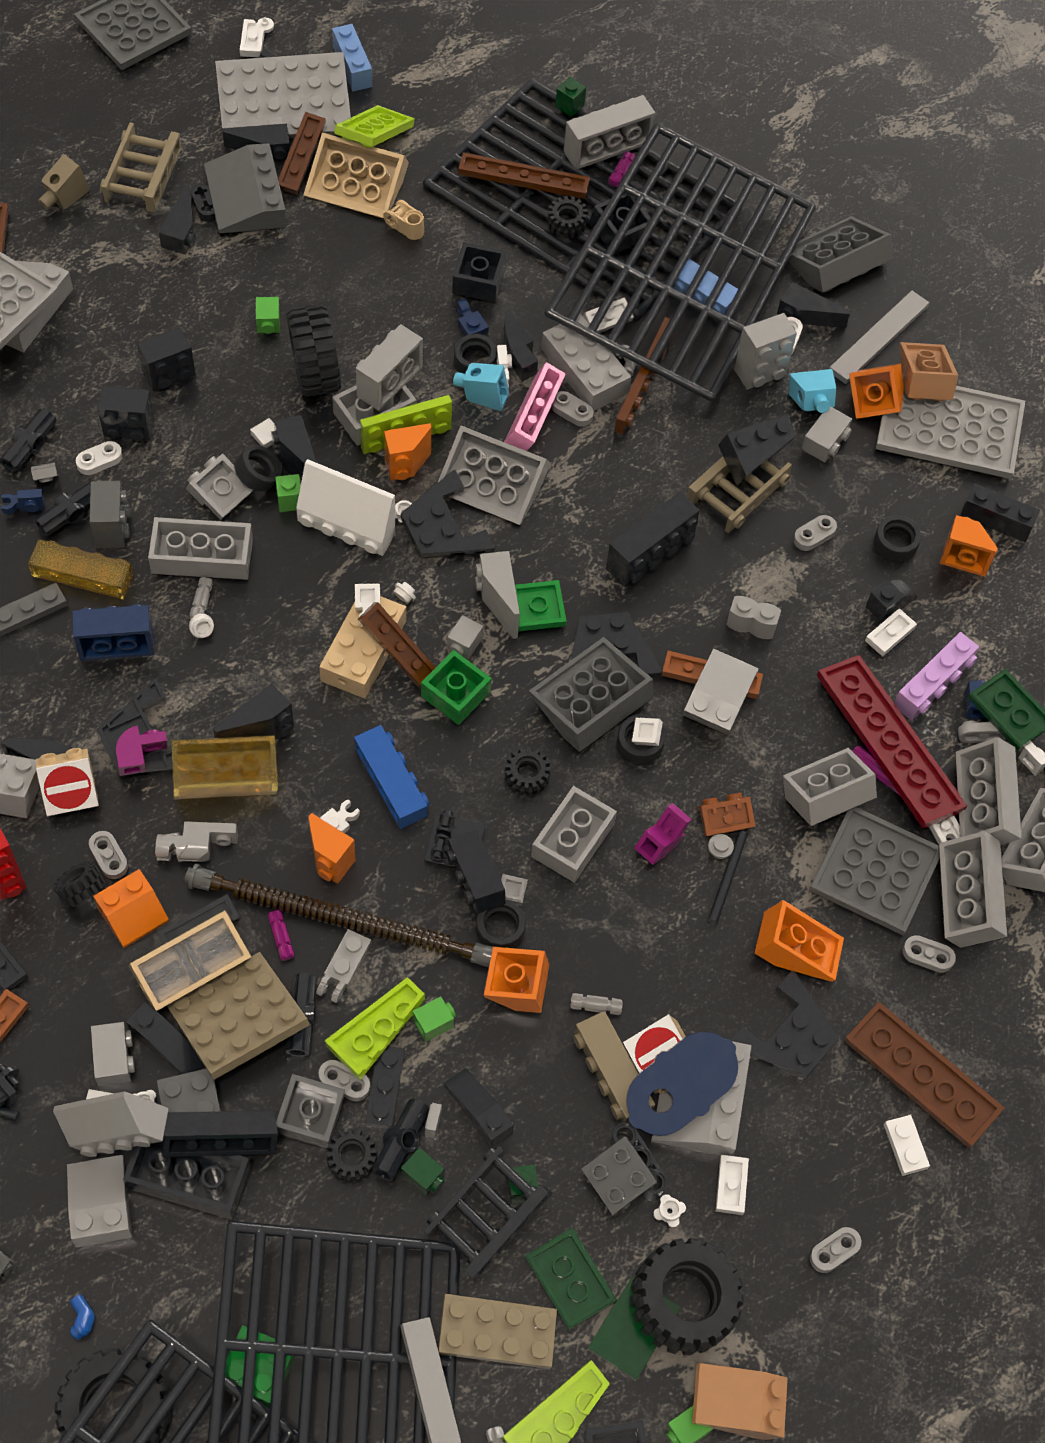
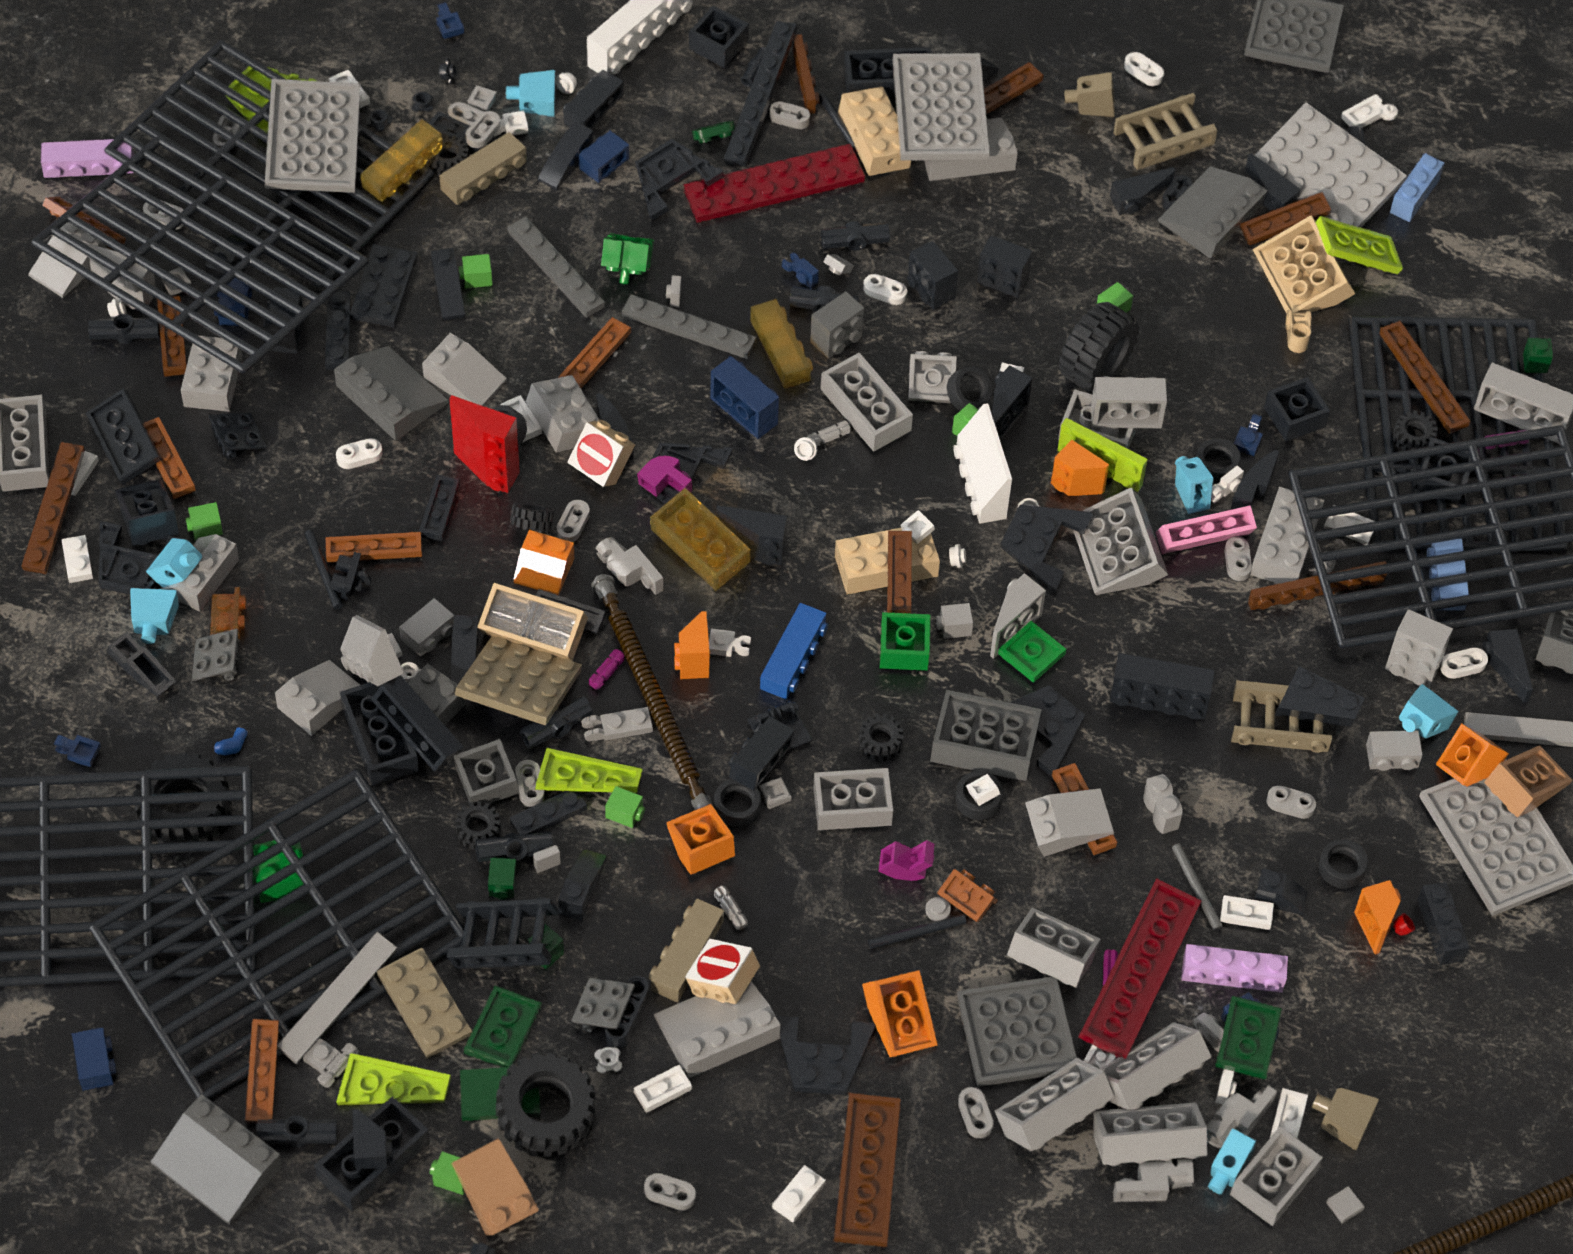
camera: 55 degrees right, 5 degrees down
(69, 138) = (1146, 70): none -> white plate
(695, 1074) = (719, 994): dark blue piece -> none
(840, 649) = (1197, 887): none -> dark grey bar

